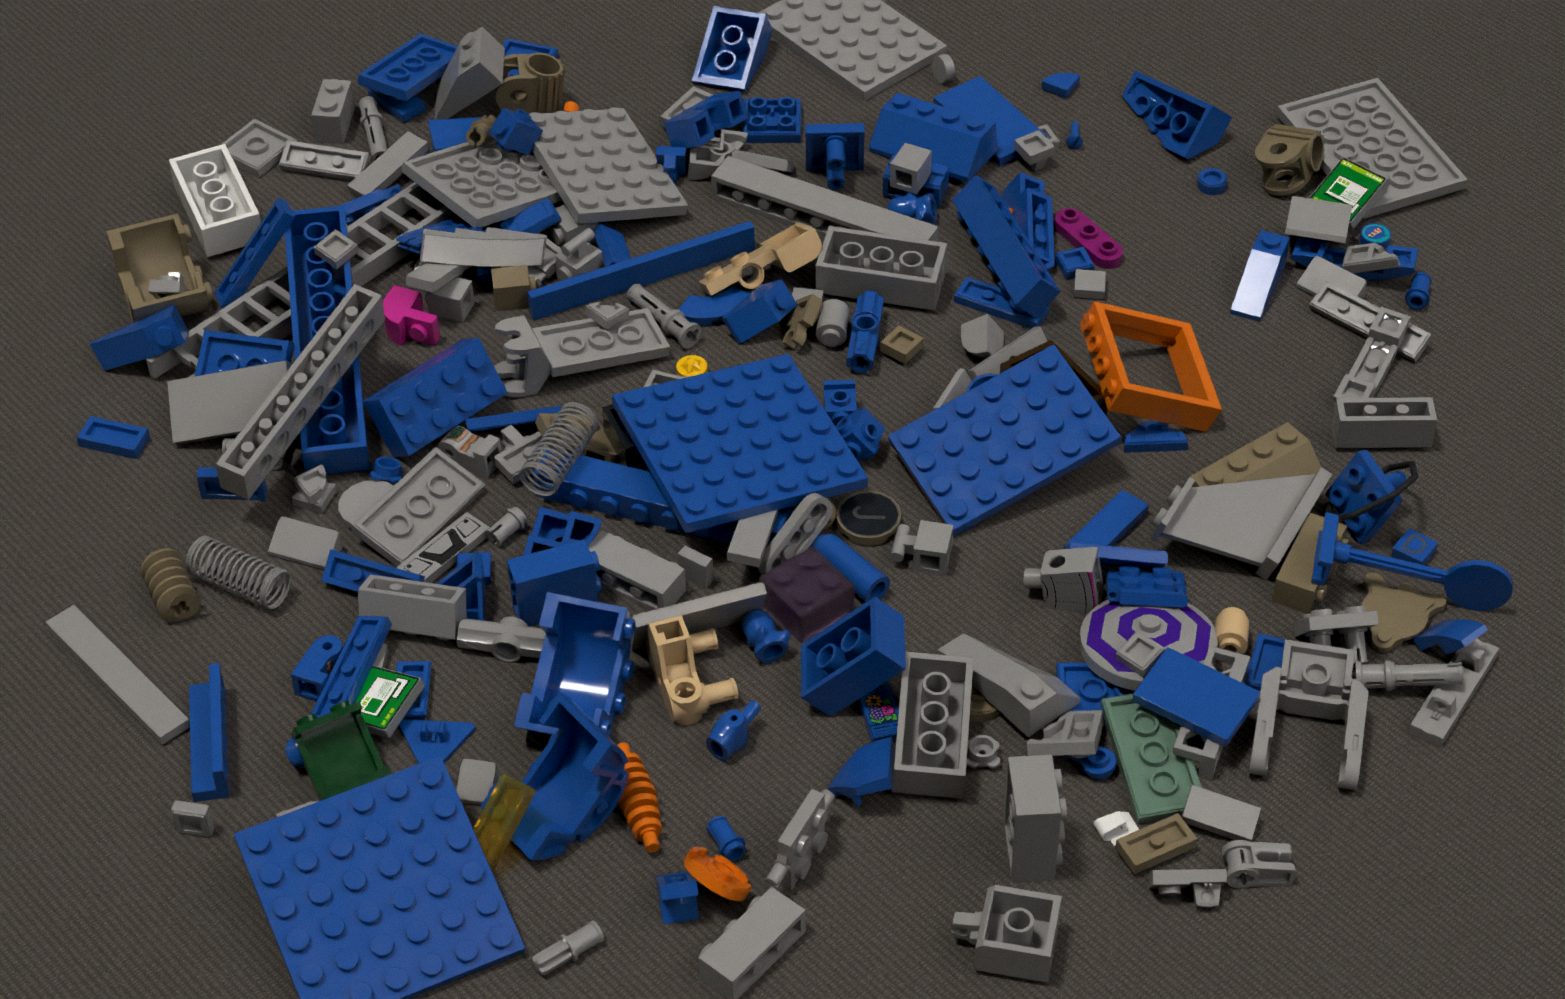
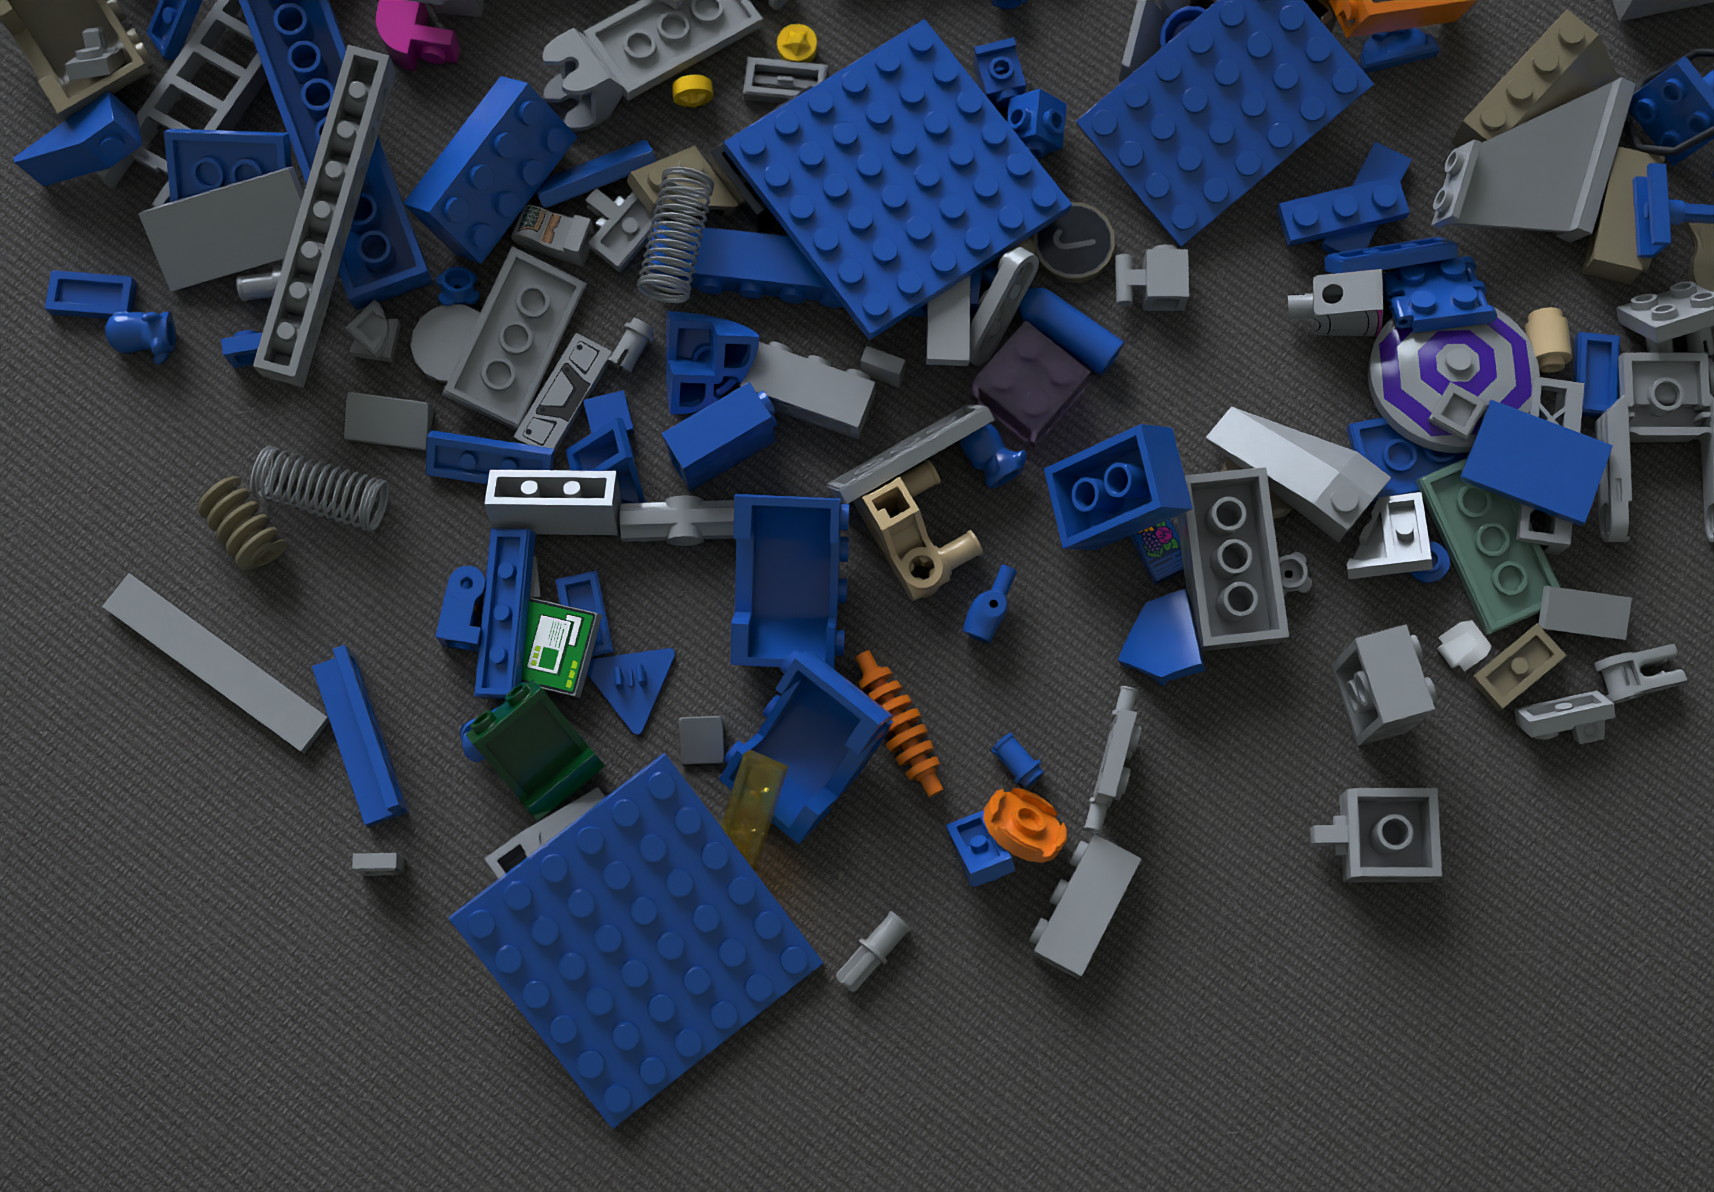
camera: 10 degrees left, 30 degrees up
(141, 460) = (142, 331): none -> blue animal
(603, 381) = (692, 90): none -> yellow tile
(1084, 525) = (1343, 210): none -> blue plate

